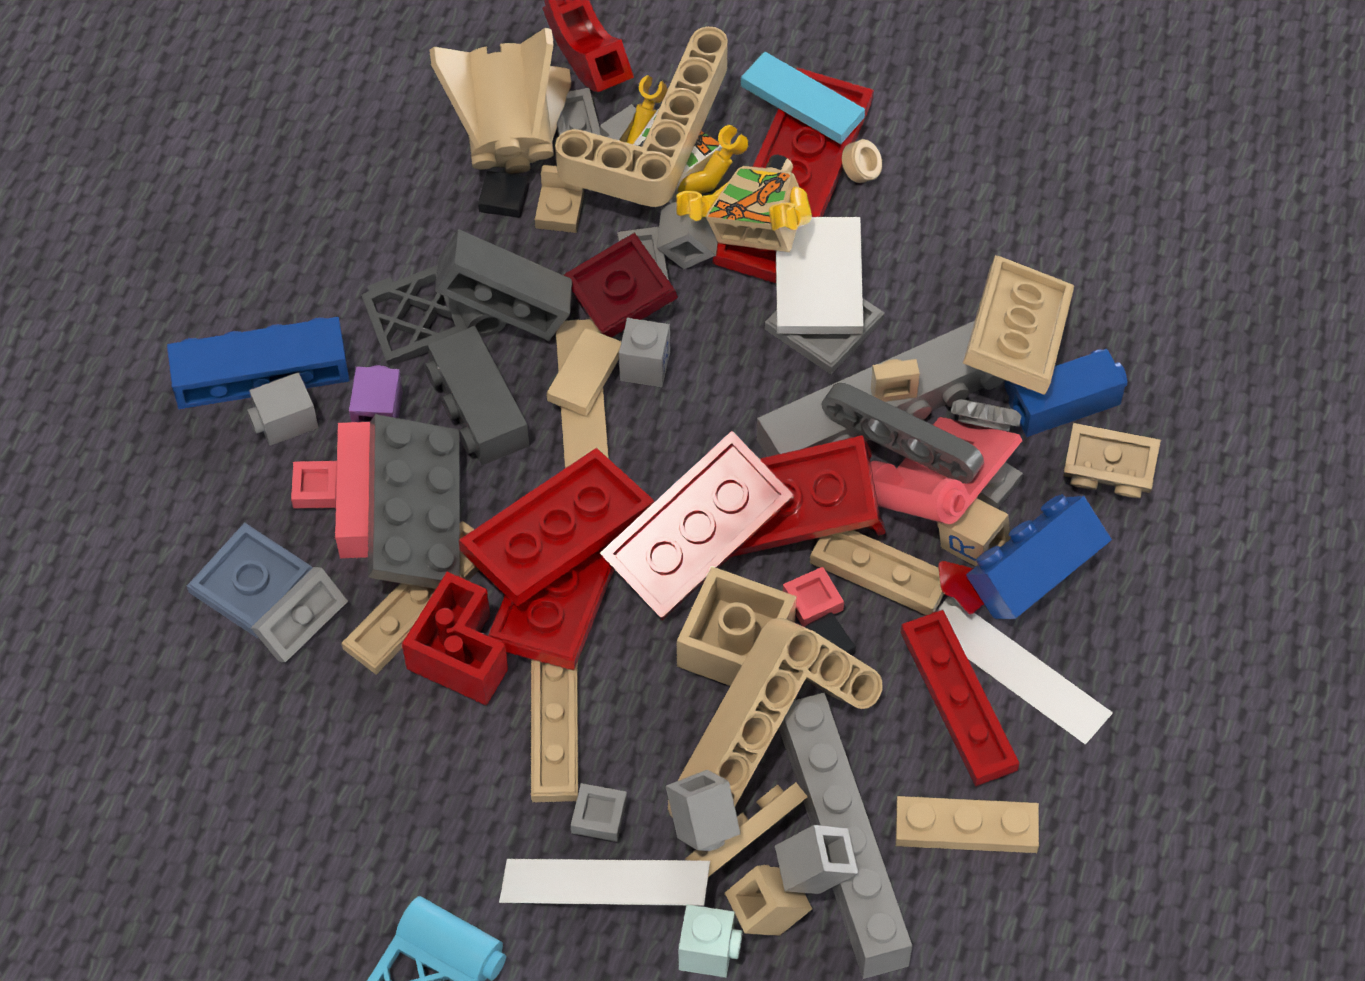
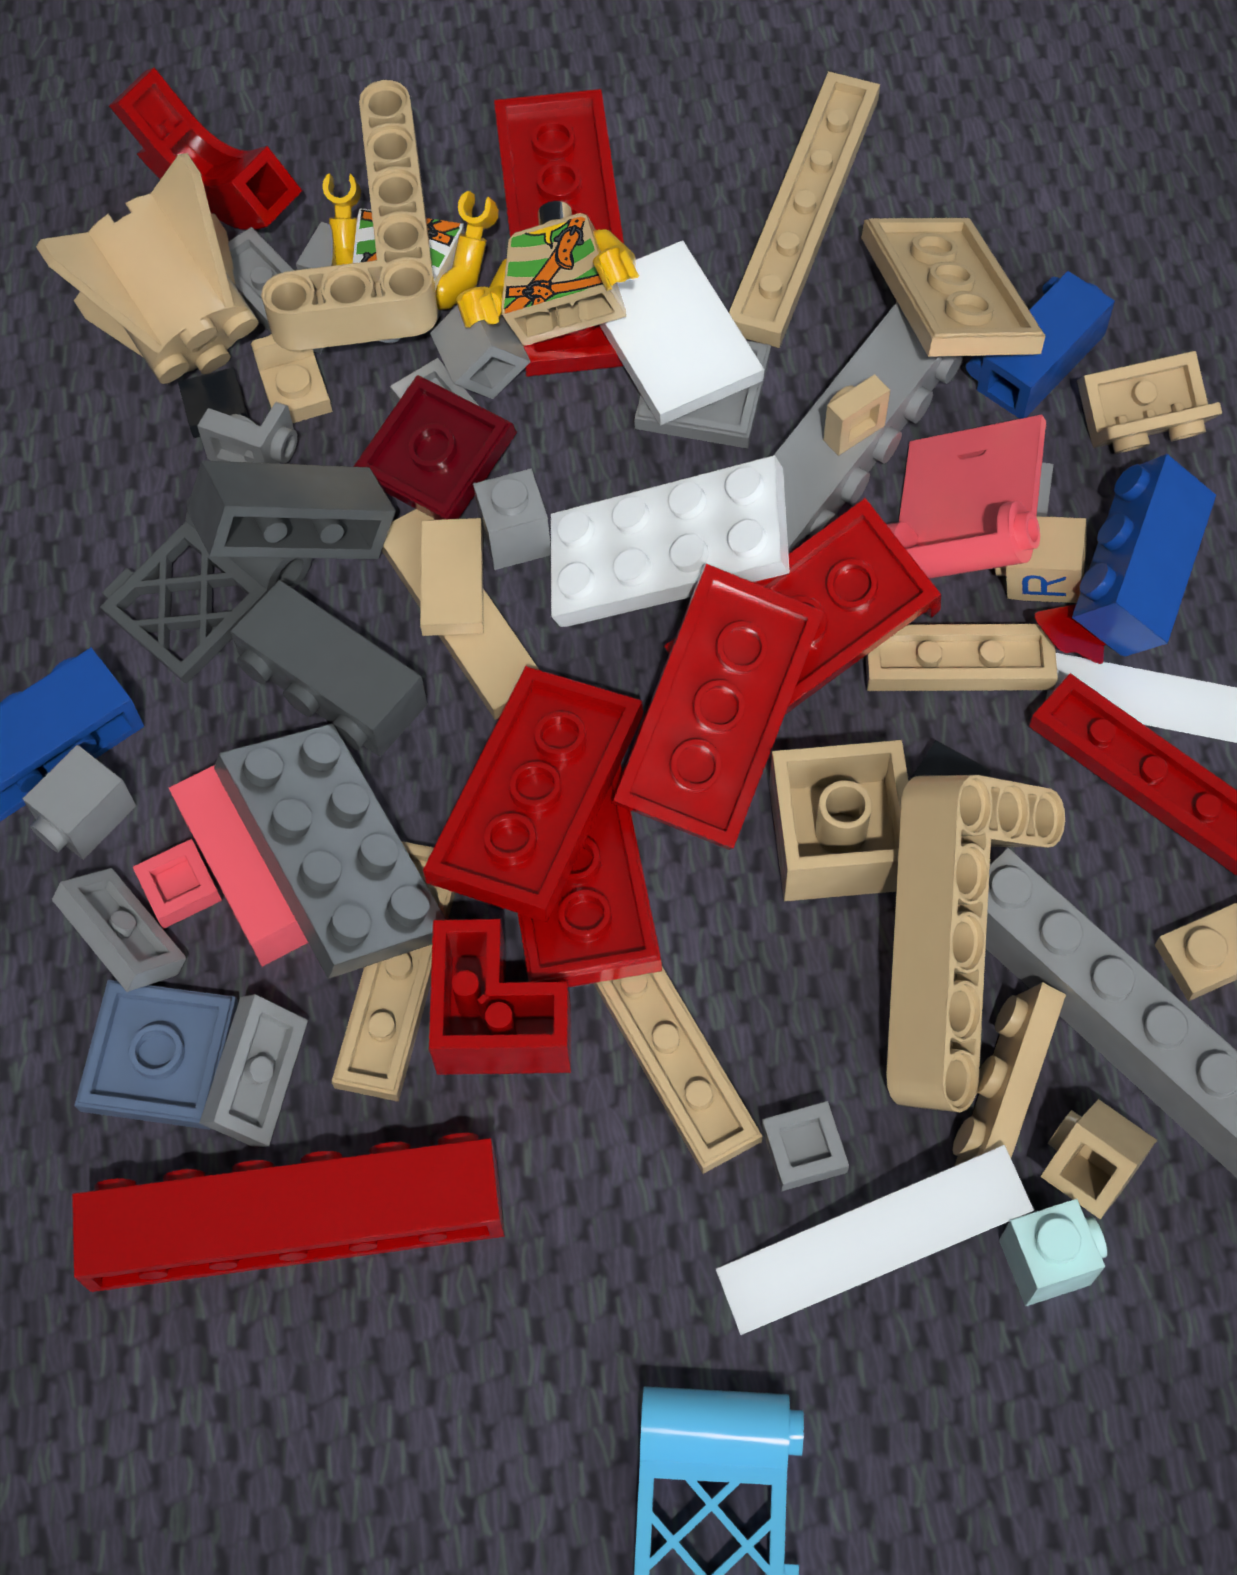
camera: 25 degrees left, 5 degrees up
(266, 495) = (119, 929): none -> light grey plate
(275, 704) = (286, 1213): none -> red brick
(375, 392) = (194, 727): medium lavender brick -> none
(507, 232) = (241, 440): none -> light grey bracket
(703, 810) = (965, 1082): light grey brick -> none
(708, 402) = (658, 540): none -> white plate
(802, 97) = (524, 130): medium azure tile -> none
(814, 595) = (904, 720): coral plate -> none
(816, 859) = (1144, 1076): light grey brick -> none
(862, 161) = (636, 177): tan tile -> none
(902, 432) = (975, 474): dark grey beam -> none
(963, 229) = (803, 208): none -> tan plate
(985, 414) = (973, 412): light grey gear -> none

